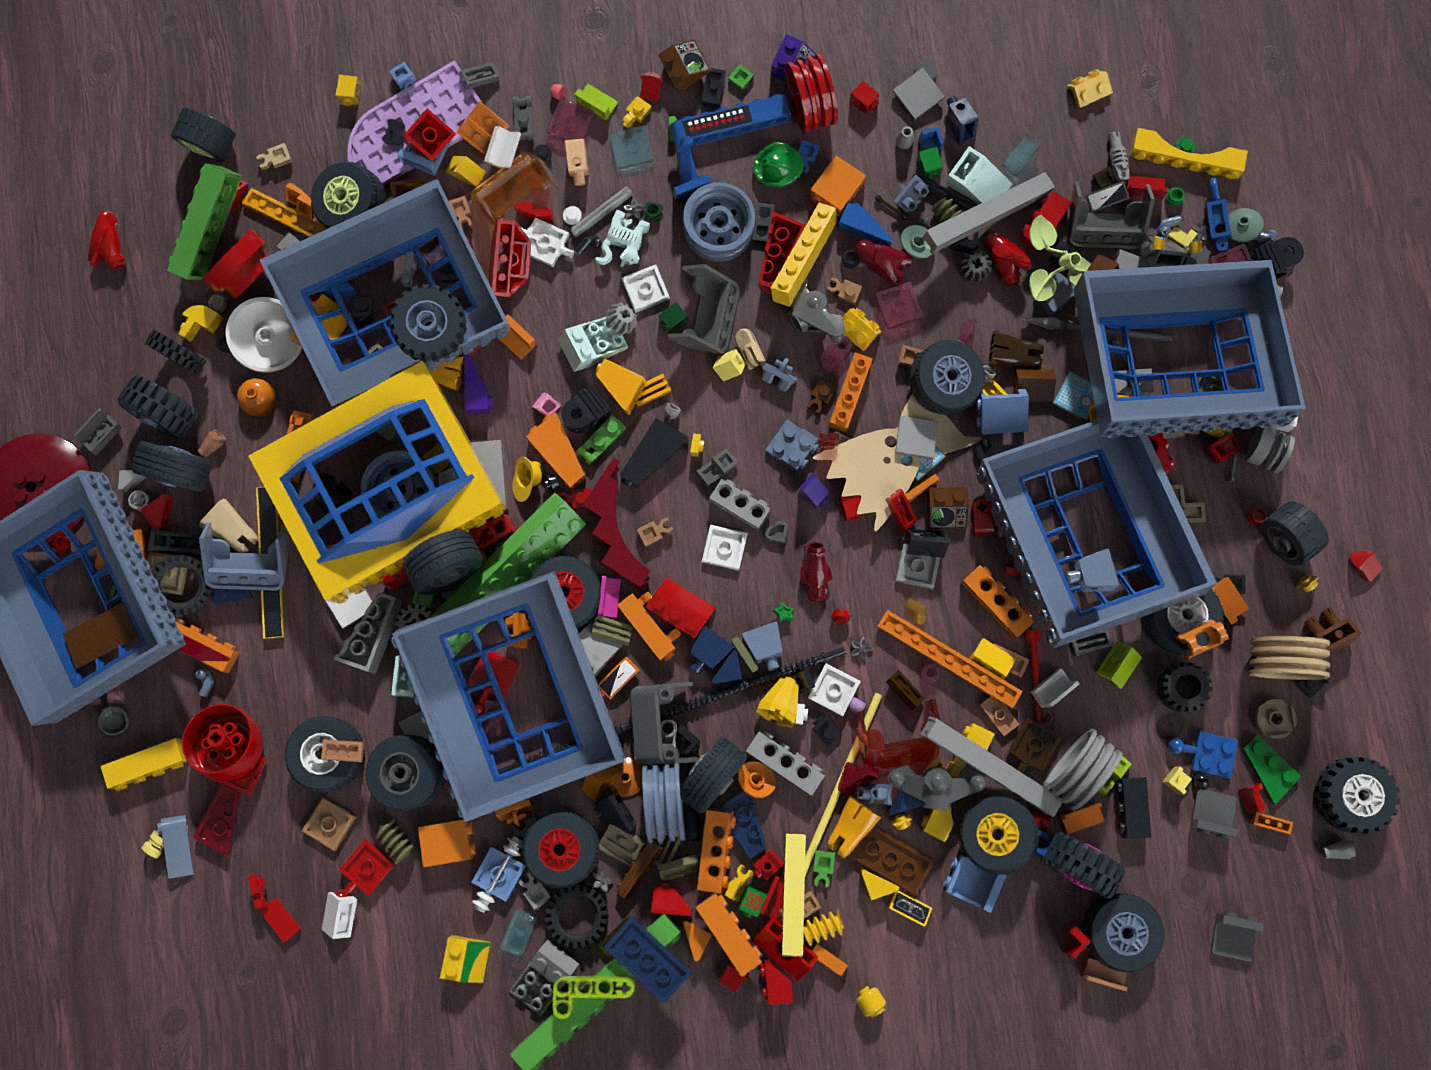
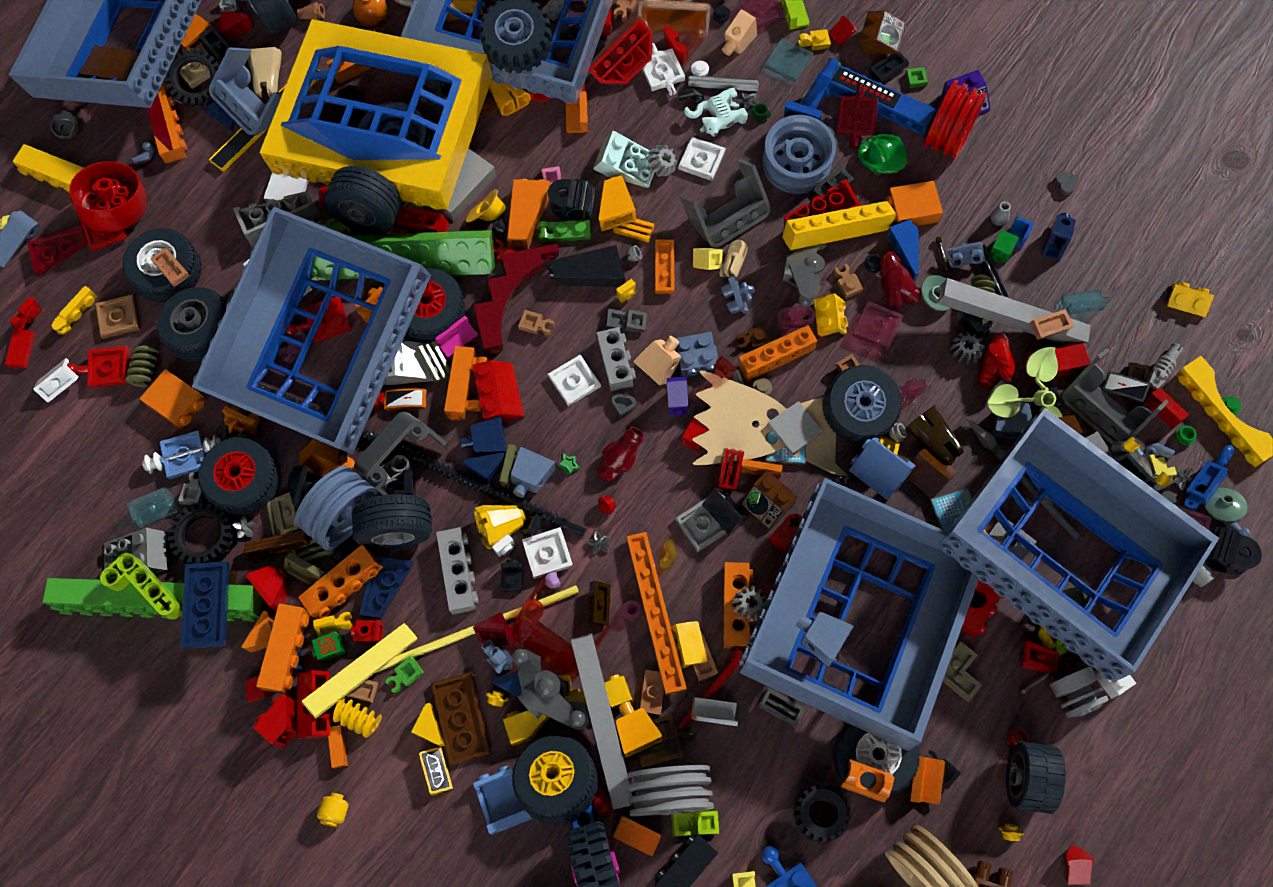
camera: 45 degrees right, 10 degrees down
(292, 853) = (73, 310): none -> yellow hinge
(465, 959) = (98, 490): yellow slope -> none
(476, 394) = (512, 125): dark purple slope -> none
(672, 318) = (699, 191): dark green brick -> none
(704, 400) = (664, 266): none -> orange plate
(731, 151) = (857, 116): none -> dark red plate
(761, 775) = (430, 558): orange dish -> none
(774, 476) = (659, 359): none -> light nougat torso
(775, 898) = (341, 659): red panel -> none
(809, 152) = (914, 166): blue plate -> none
(852, 826) = (458, 664): light orange piece -> none
(862, 427) = (763, 385): none -> dark tan plate
(865, 97) = (997, 162): red brick -> none
(918, 93) = (1043, 193): light grey tile -> none
(977, 177) = (1030, 282): light aqua slope -> none
(1007, 586) = (743, 606): none -> light grey gear
(1018, 751) = (636, 730): none -> light orange torso
(1022, 197) = (1051, 324): none -> nougat tile
(1119, 664) = (787, 746): lime panel -> none

